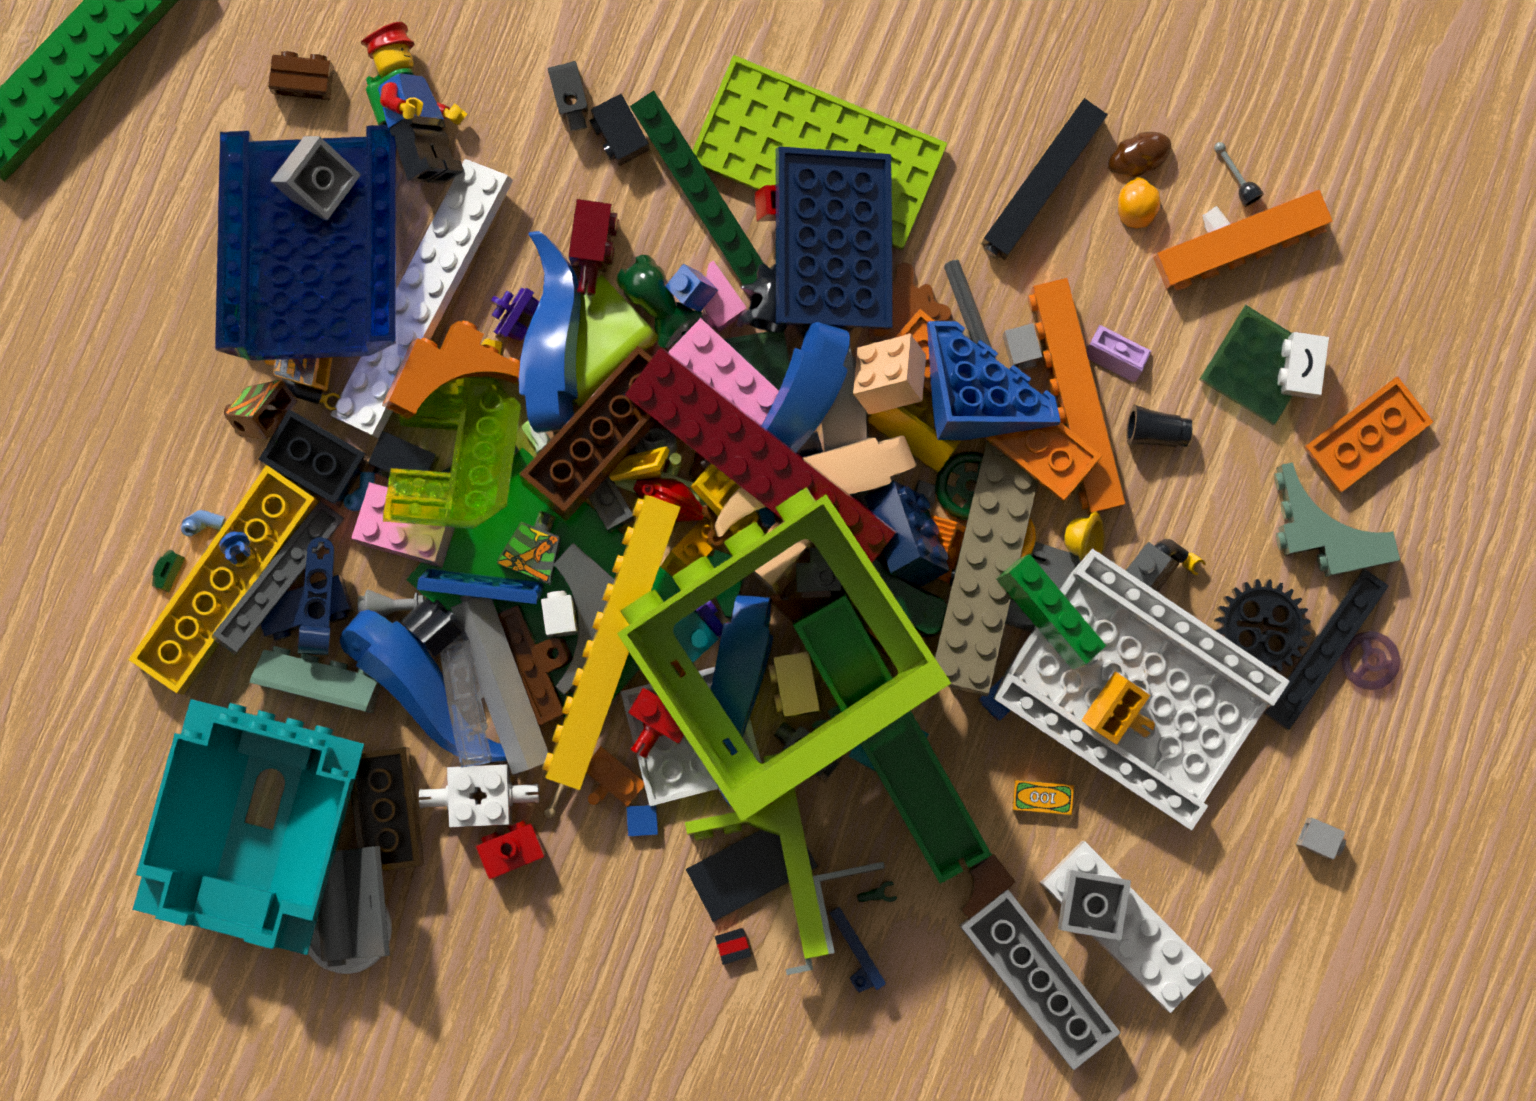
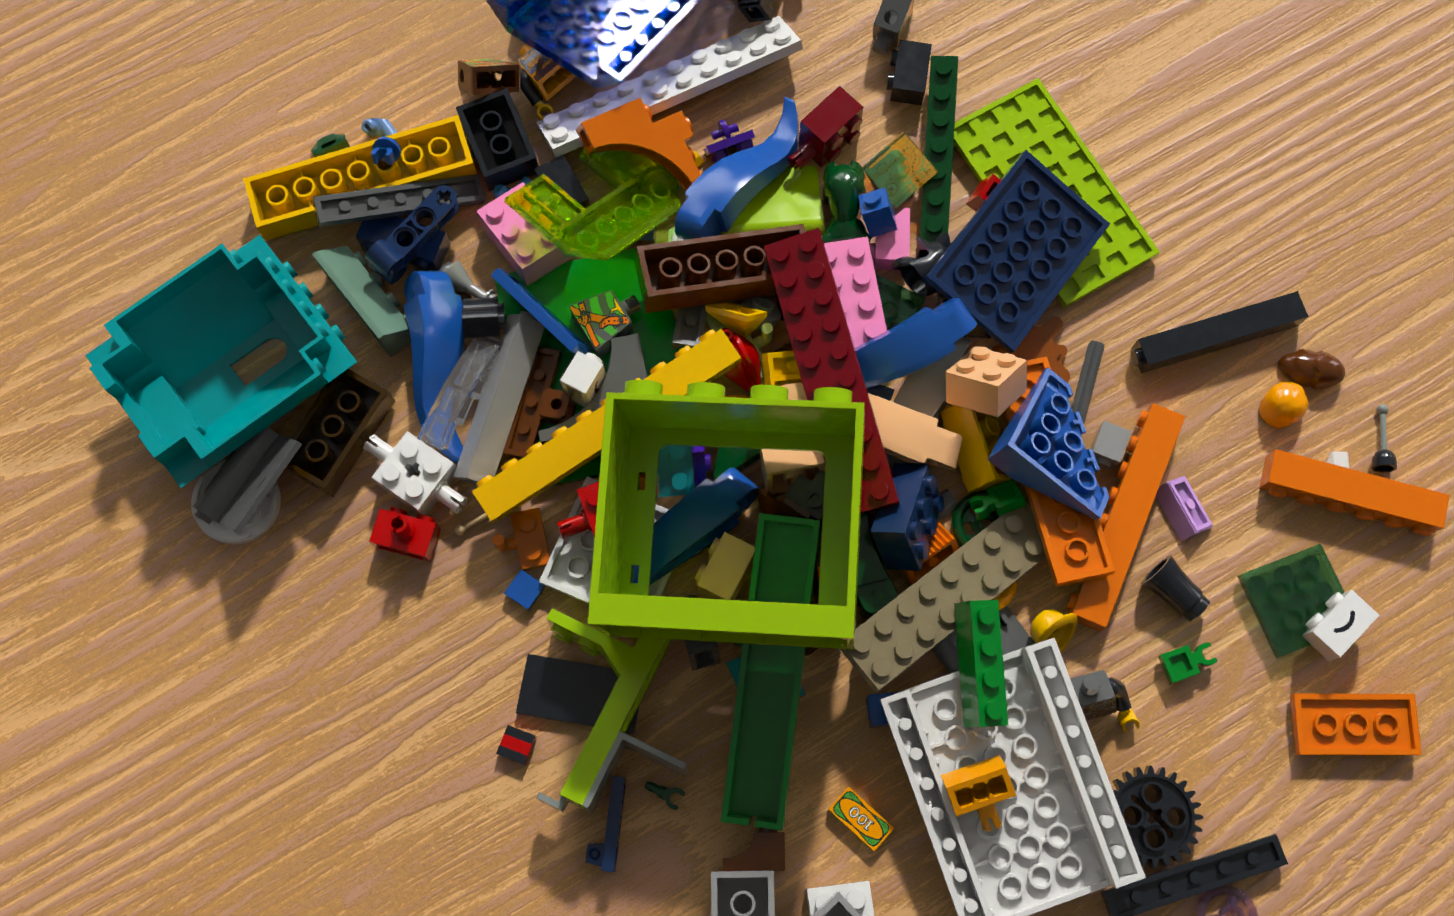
camera: 40 degrees right, 10 degrees down
(677, 229) = (900, 169): none -> clear yellow tile
(969, 458) = (999, 498): none -> green plate
(1204, 485) = (1183, 663): none -> green plate
(1310, 528) = (1266, 798): sand green arch -> none

